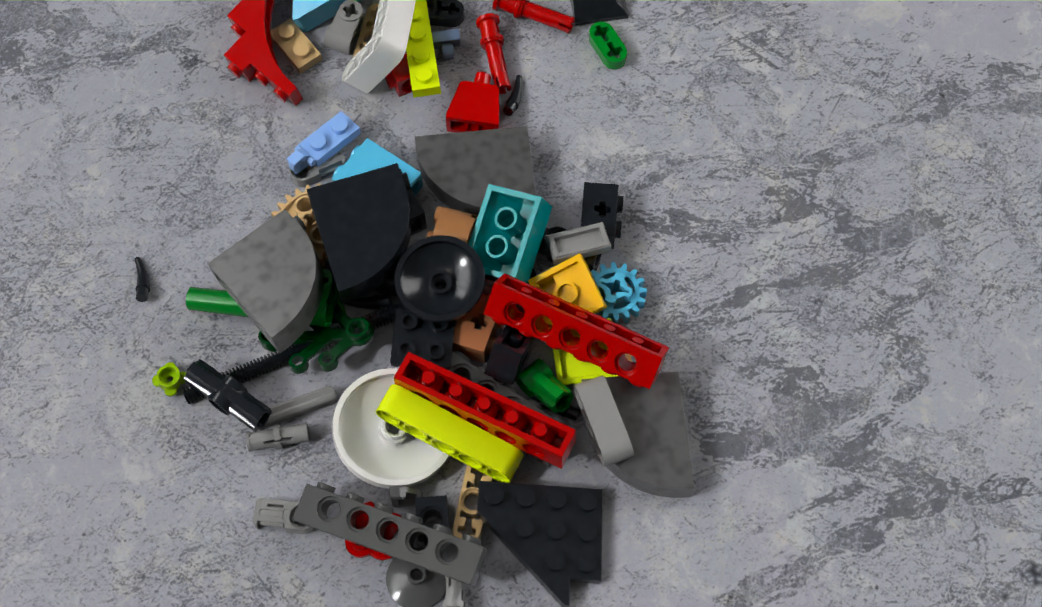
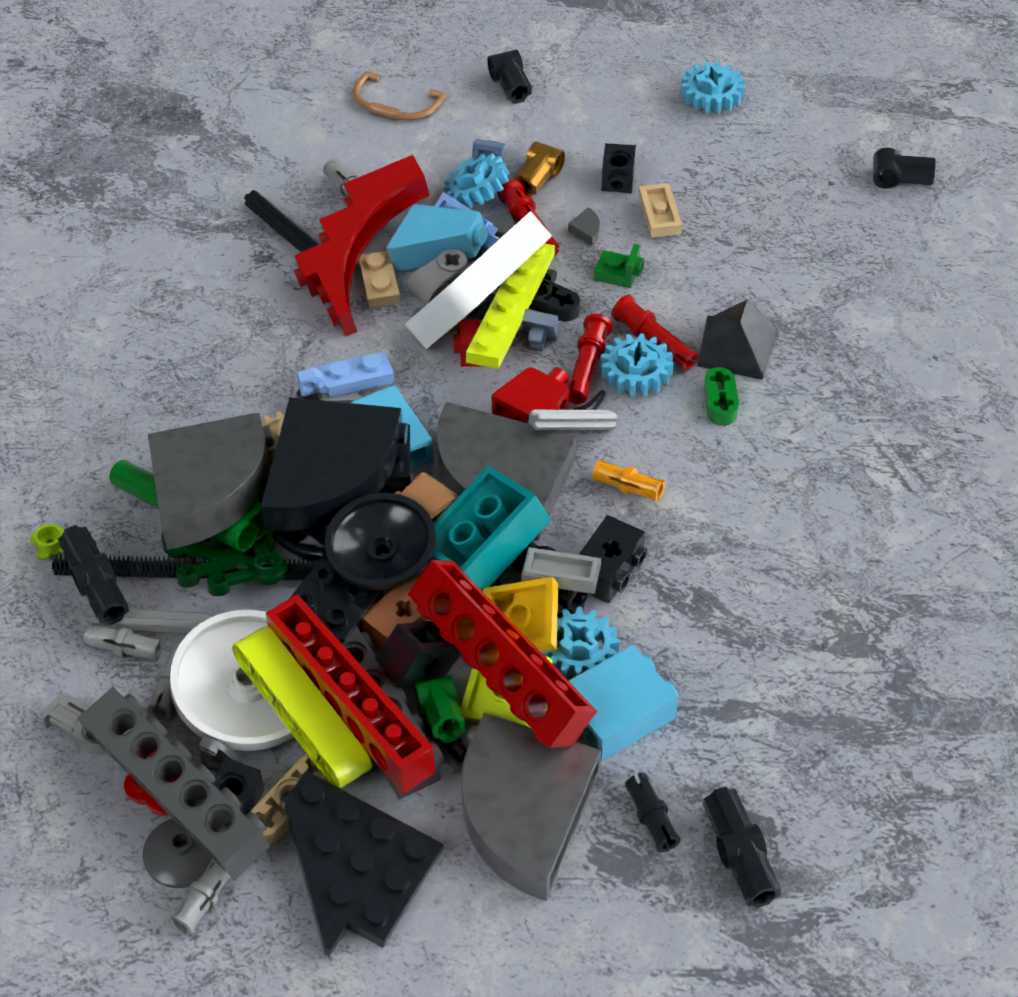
camera: 25 degrees right, 15 degrees down
(143, 284) = (82, 442): black helmet -> none
(191, 27) = (279, 221): none -> black axle
(330, 455) = (162, 697): none -> light grey pin
(515, 112) = (572, 419): none -> axle
(535, 44) = (636, 365): none -> medium azure gear
(578, 144) = (628, 480): none -> light orange pin
(603, 421) = (478, 762): light grey beam -> none
(671, 320) = (628, 701): none -> medium azure brick
(731, 399) = (652, 812): none -> black pin
(804, 398) = (741, 847): none -> black piece

